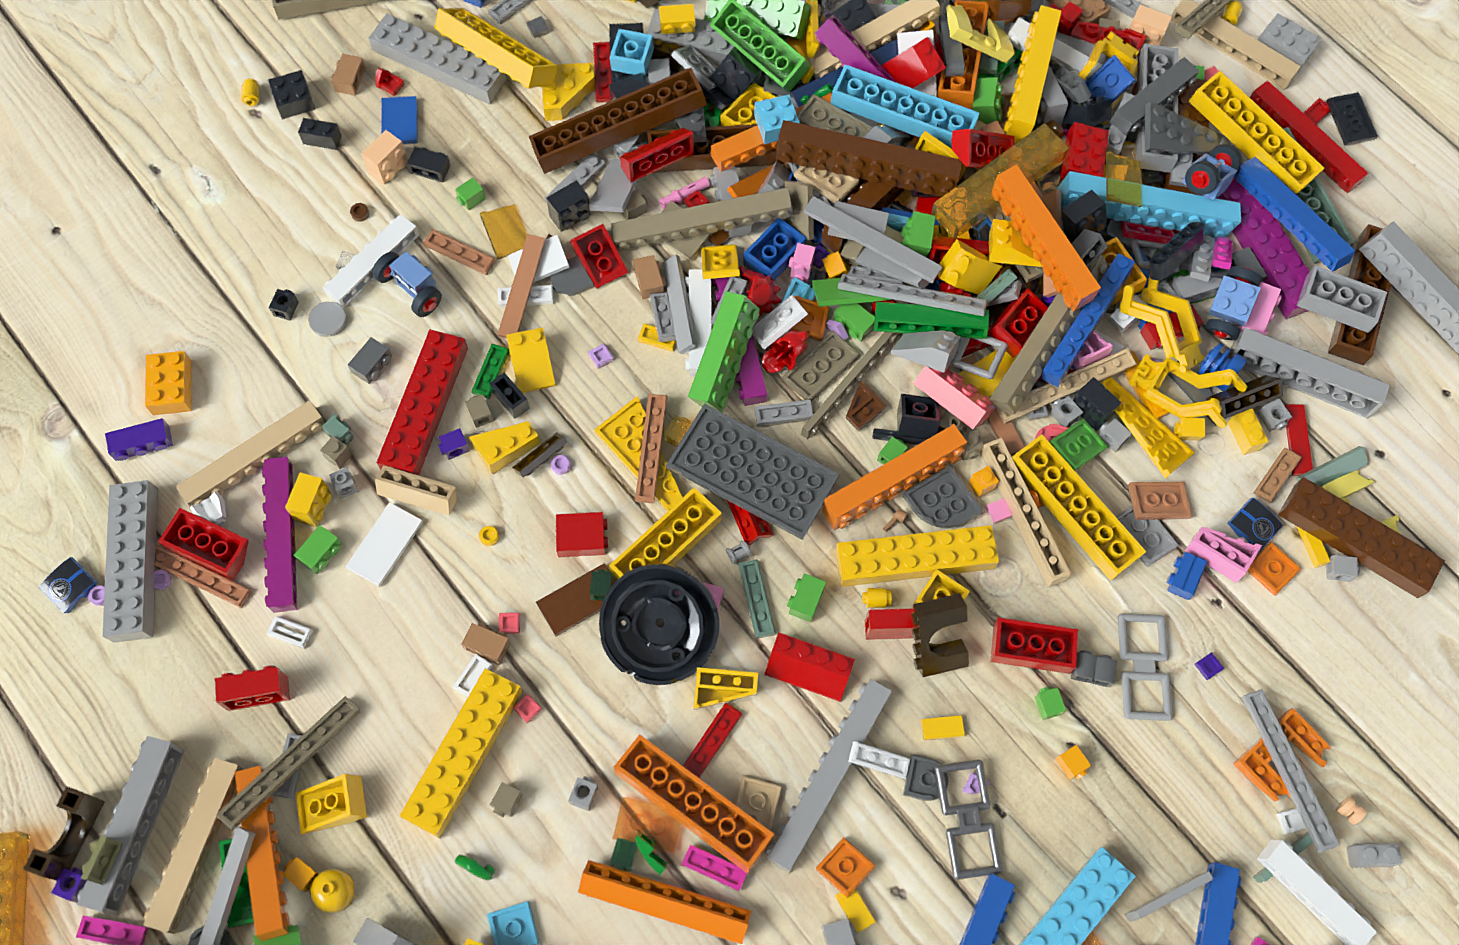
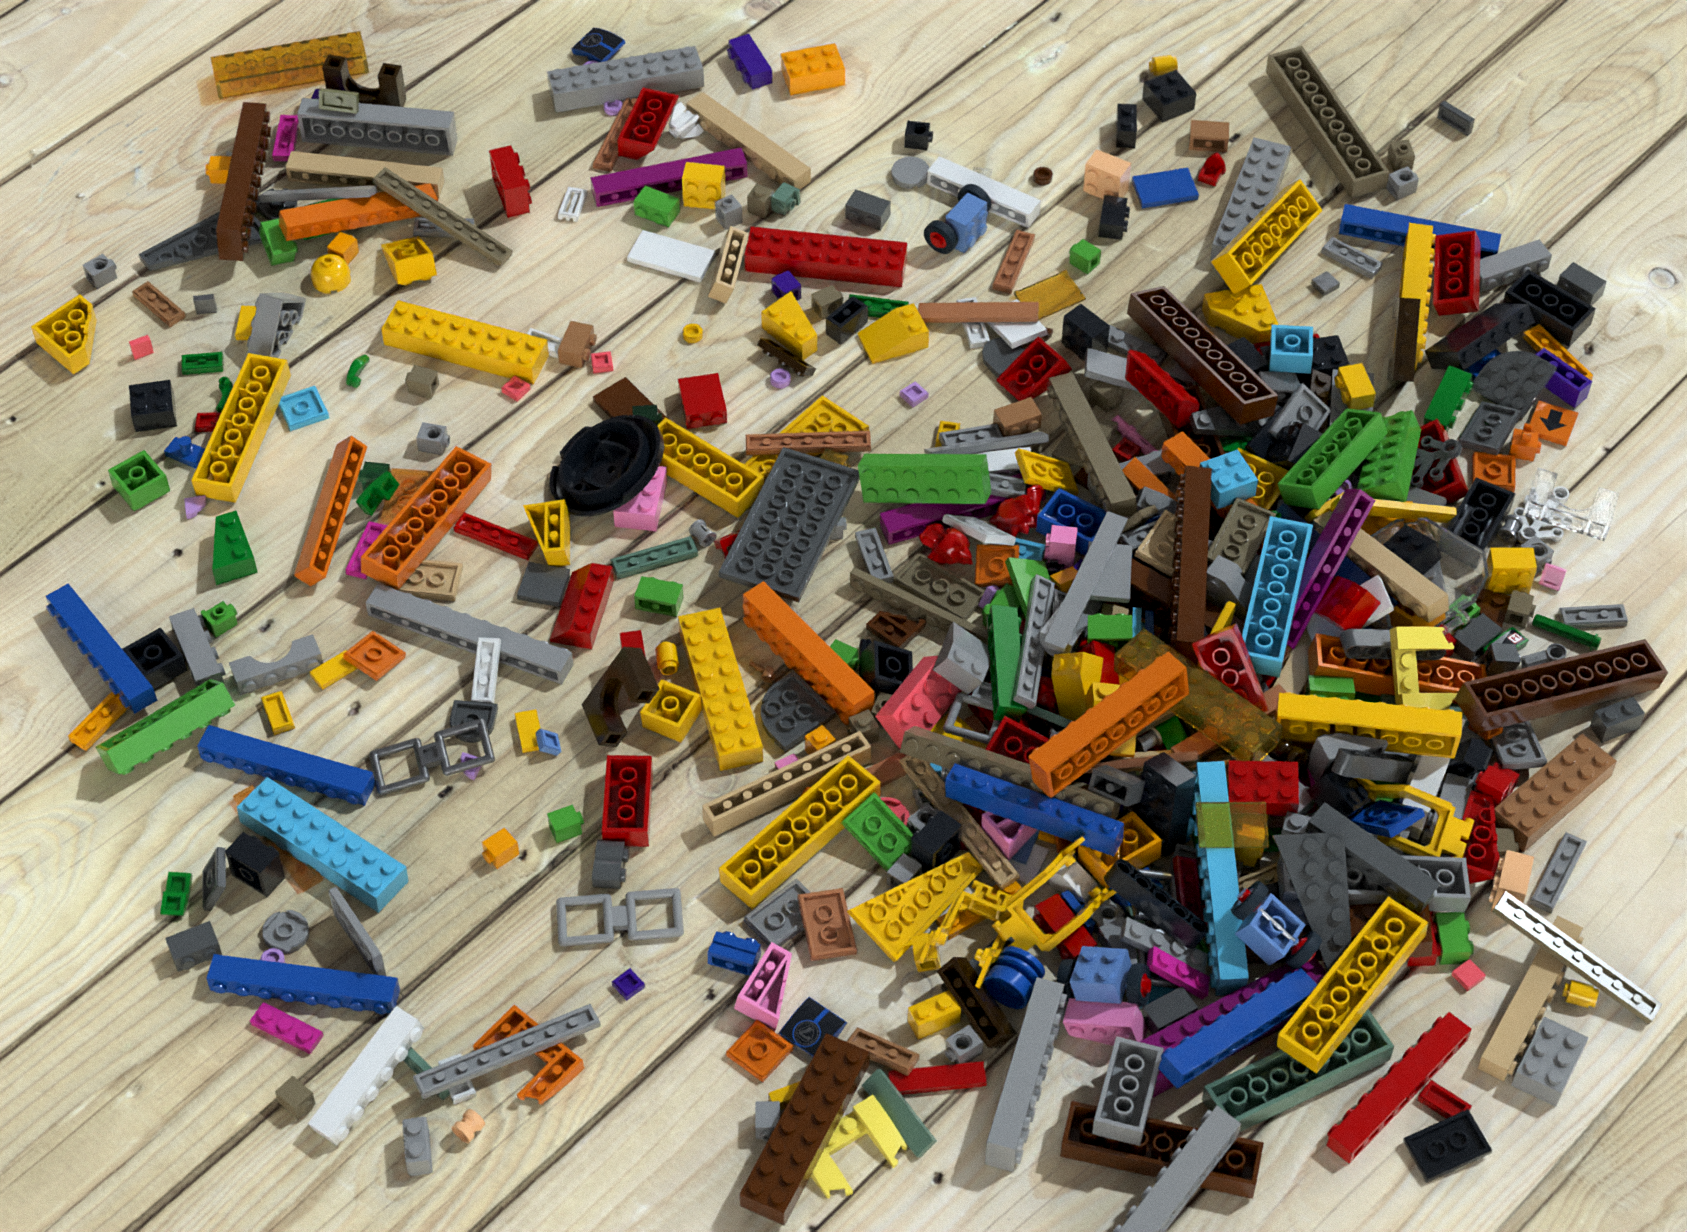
camera: 85 degrees right, 15 degrees down
(775, 701) = (543, 584): none -> dark grey tile
(960, 710) = (548, 742): none -> medium blue tile

